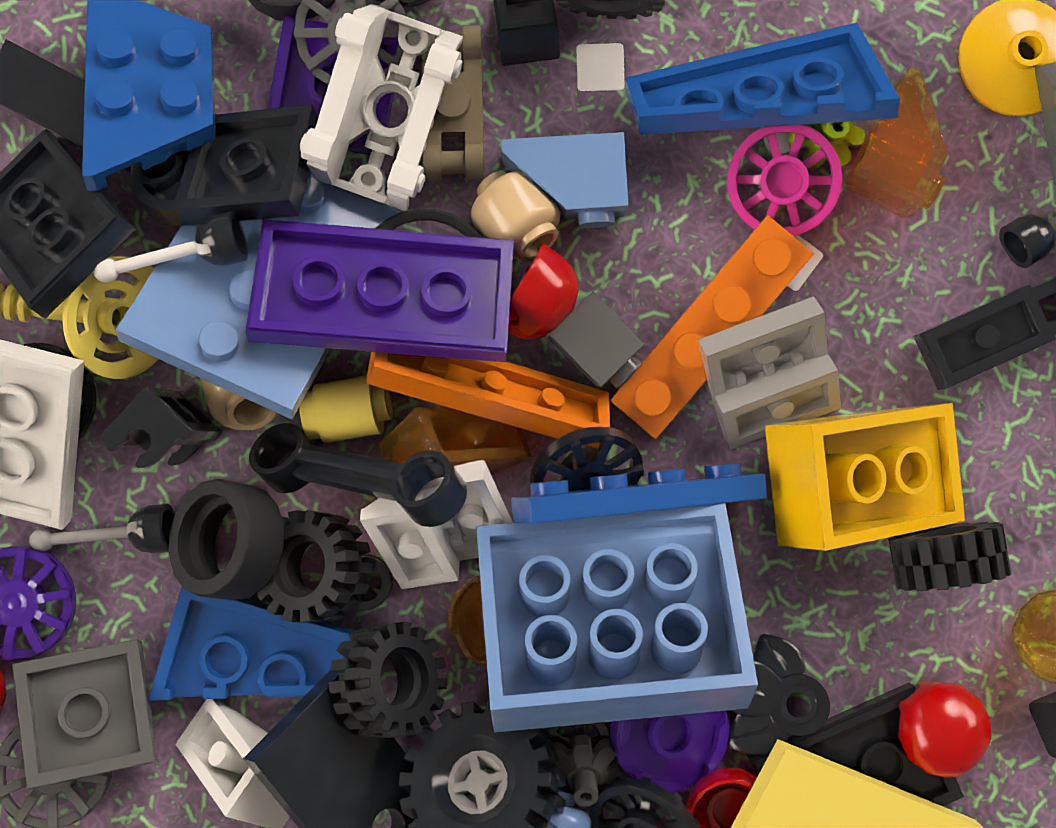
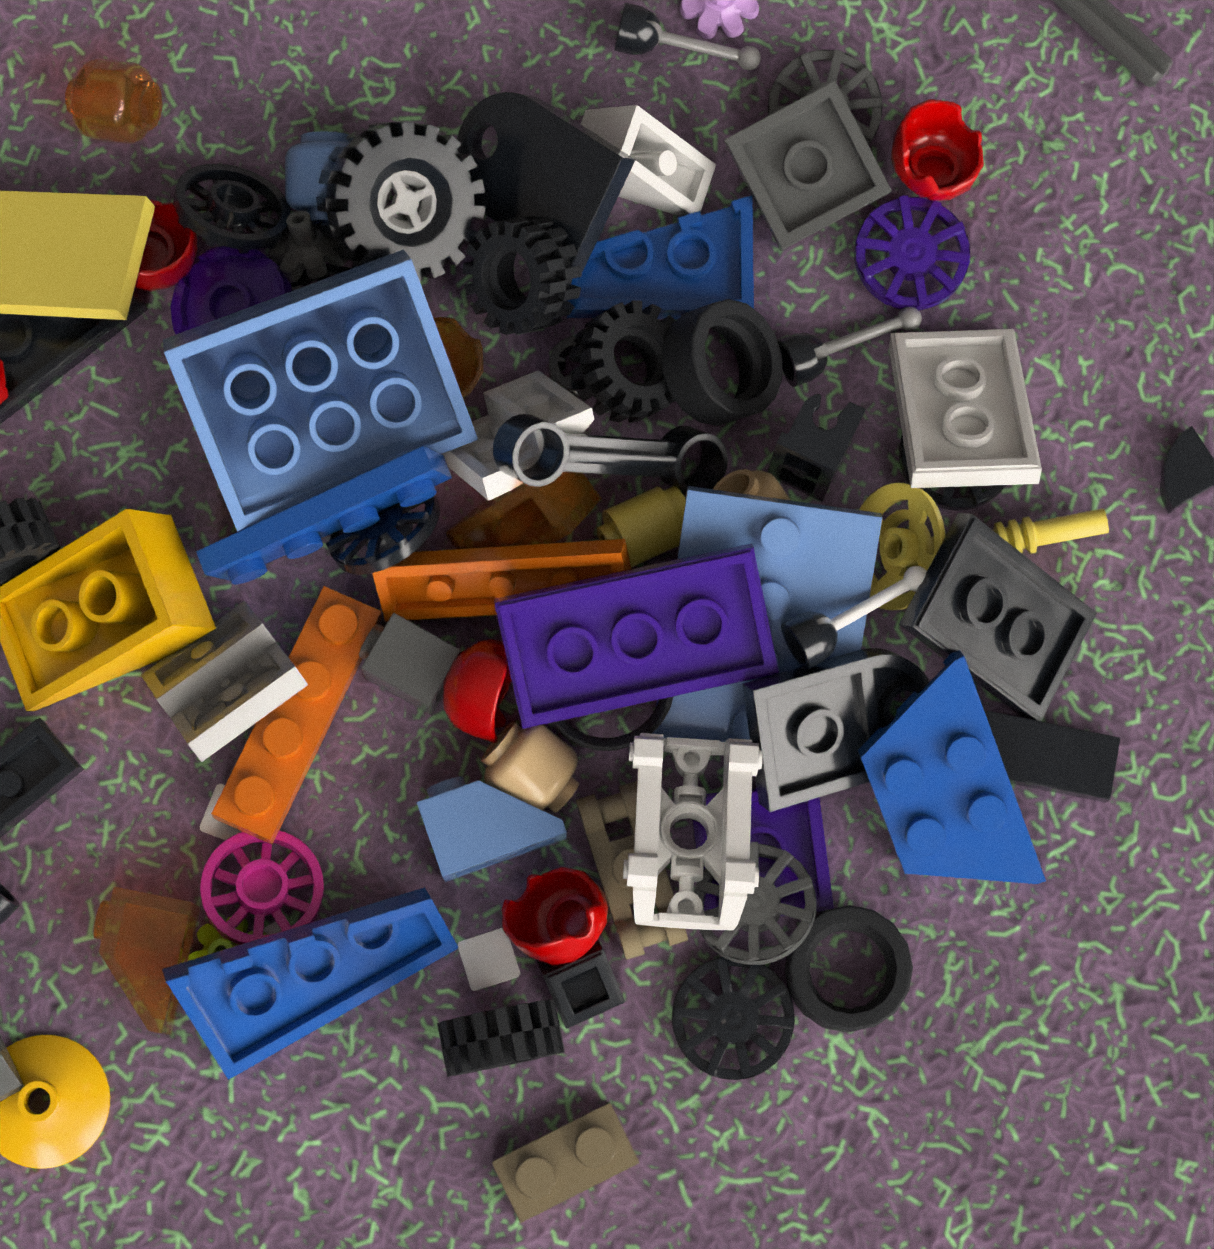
camera: 160 degrees right, 10 degrees down
(532, 74) = (556, 916): none -> red hair
(779, 675) = (145, 373): black plate -> none

